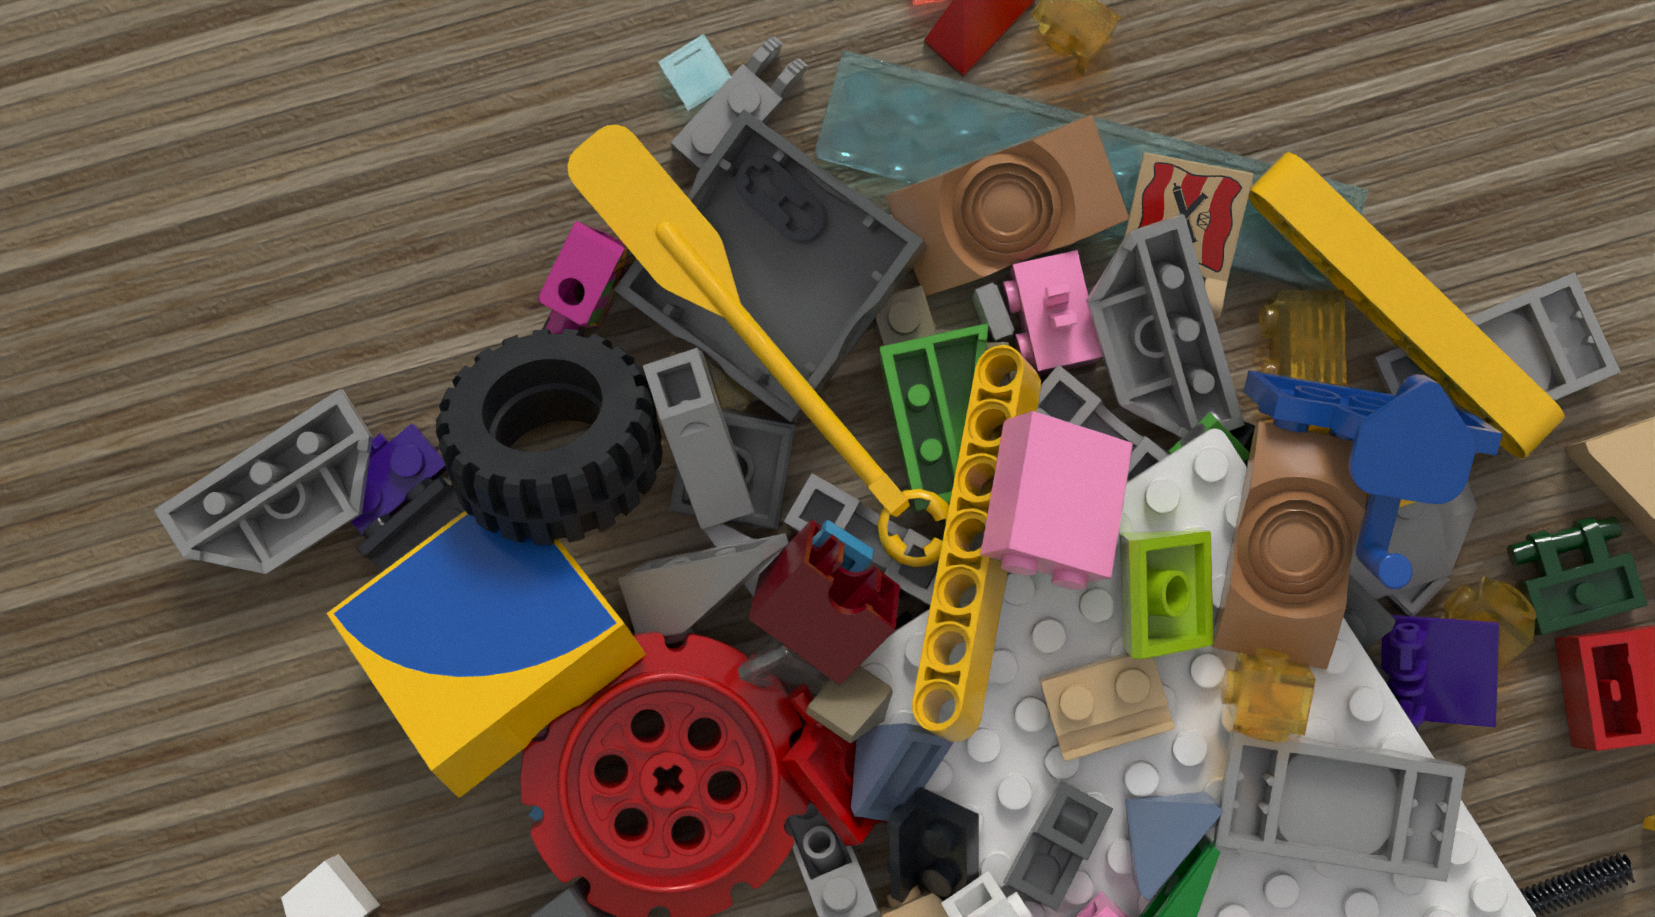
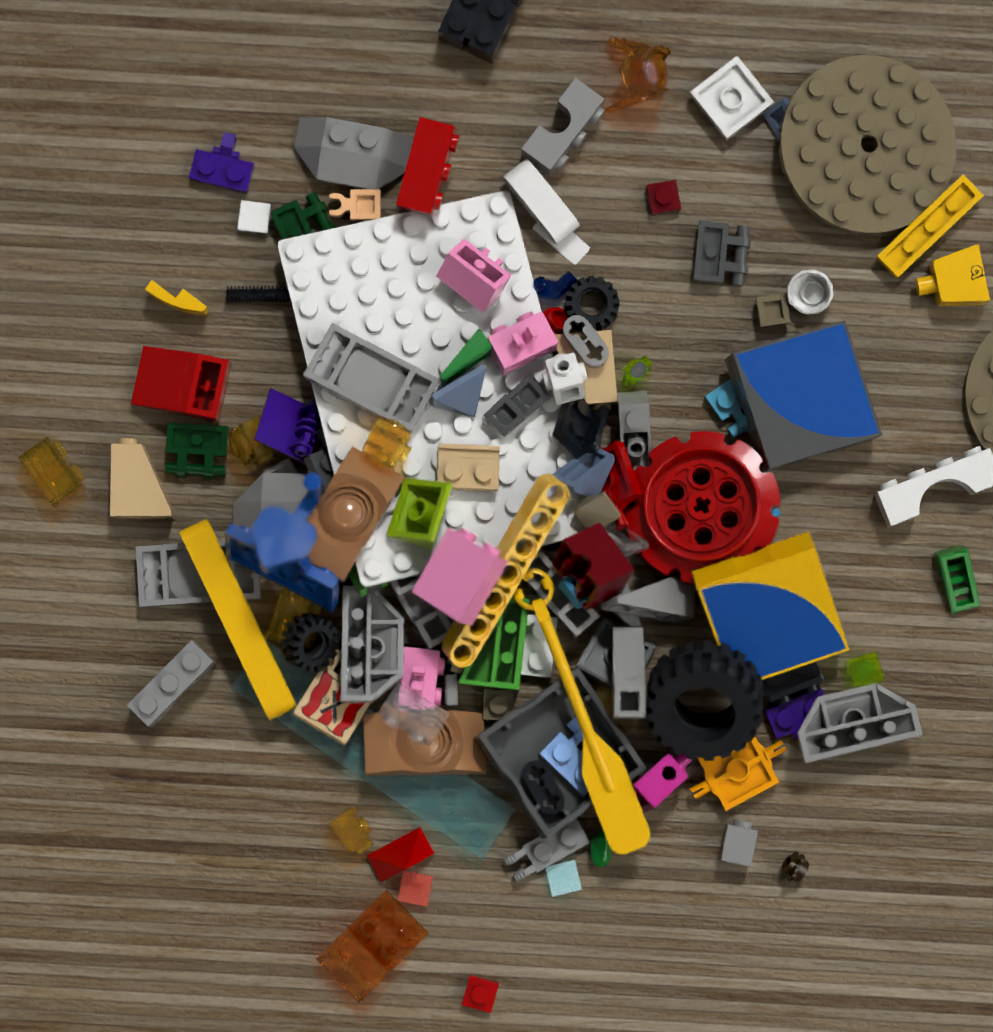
camera: 160 degrees left, 0 degrees up
(214, 816) = (965, 563): none -> green slope
(296, 592) = (865, 670): none -> clear neon green plate
(311, 217) = (794, 867): none -> dark brown plate
(418, 223) = (738, 843): none -> light grey brick
(449, 335) = (739, 775): none -> light orange plate
(651, 133) = (600, 849): none -> green arm
(757, 264) = (567, 758): none -> light blue plate
(870, 421) = (536, 655): none -> white plate
(1047, 242) = (413, 715): none -> clear bracket
(1294, 313) = (297, 636): none -> black tyre
(1479, 148) = (171, 683): none -> light grey arch

